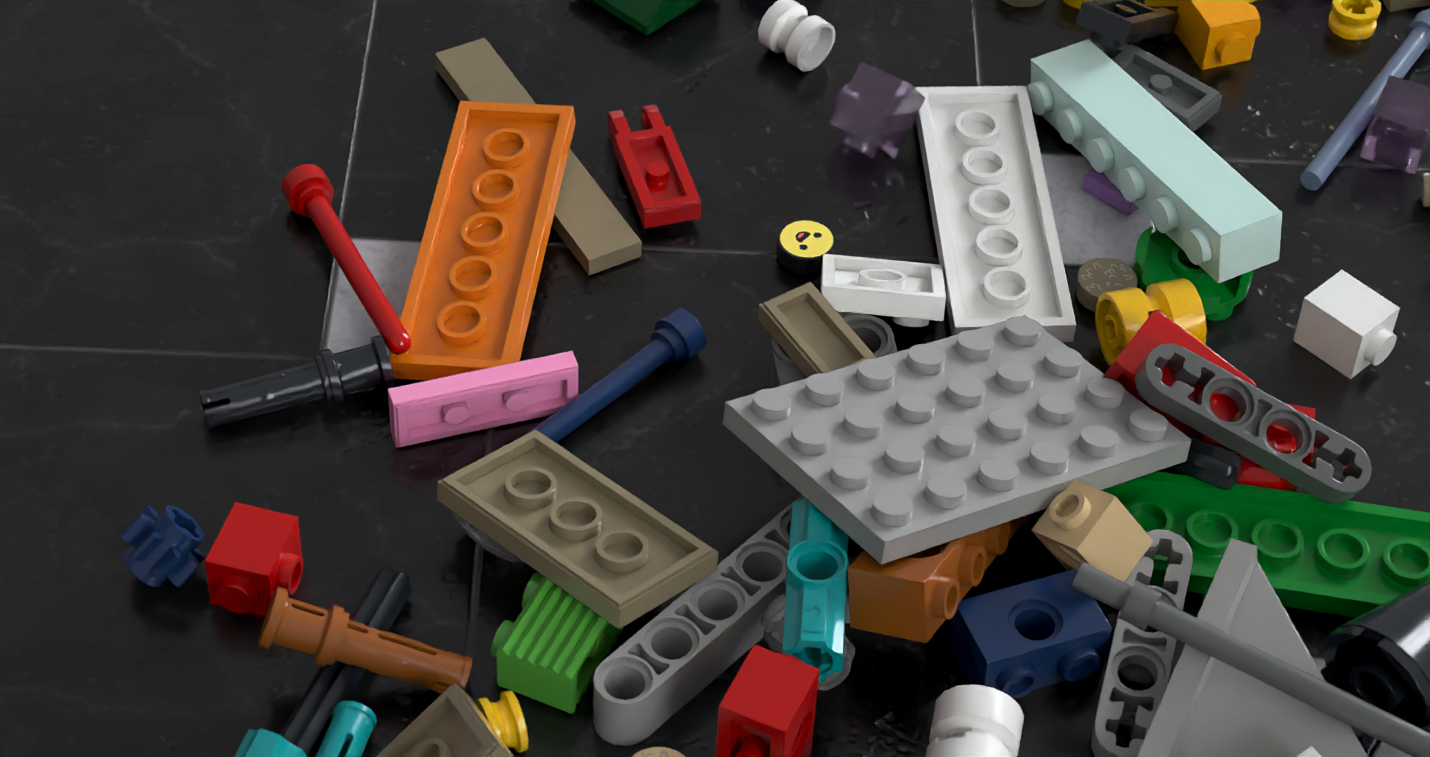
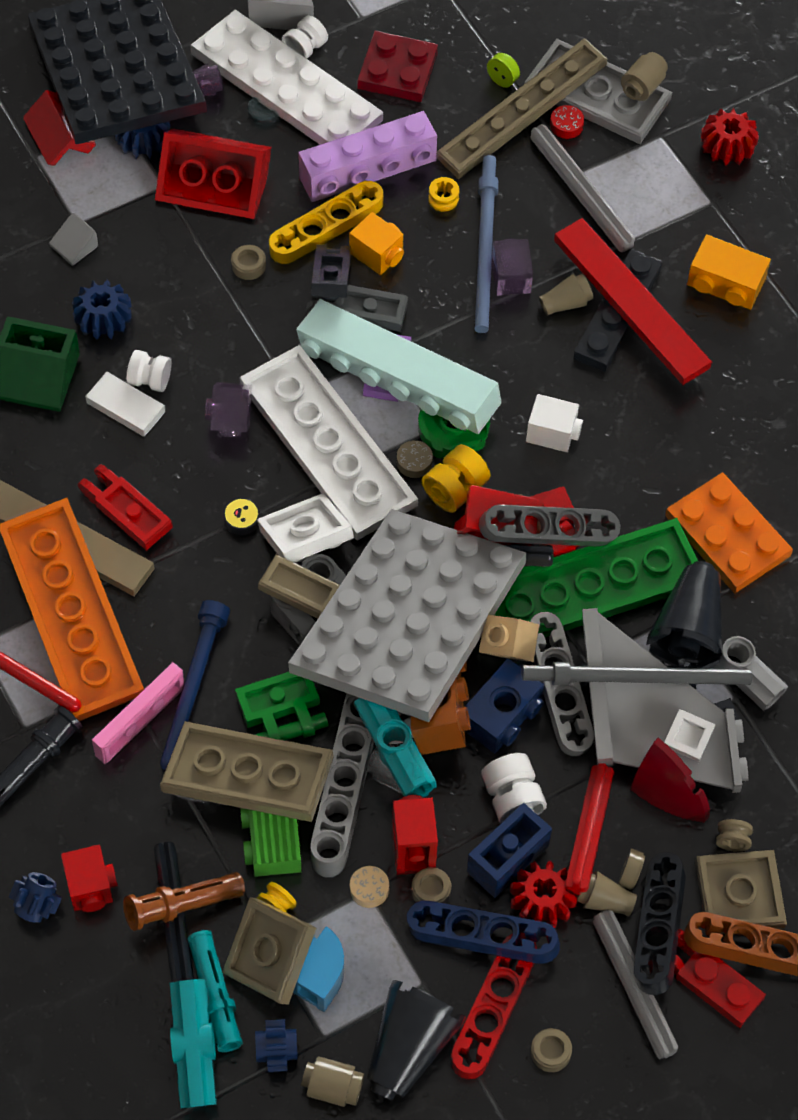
camera: 30 degrees left, 15 degrees up
(702, 475) = (279, 697): none -> green plate
(740, 62) = (125, 404): none -> white tile

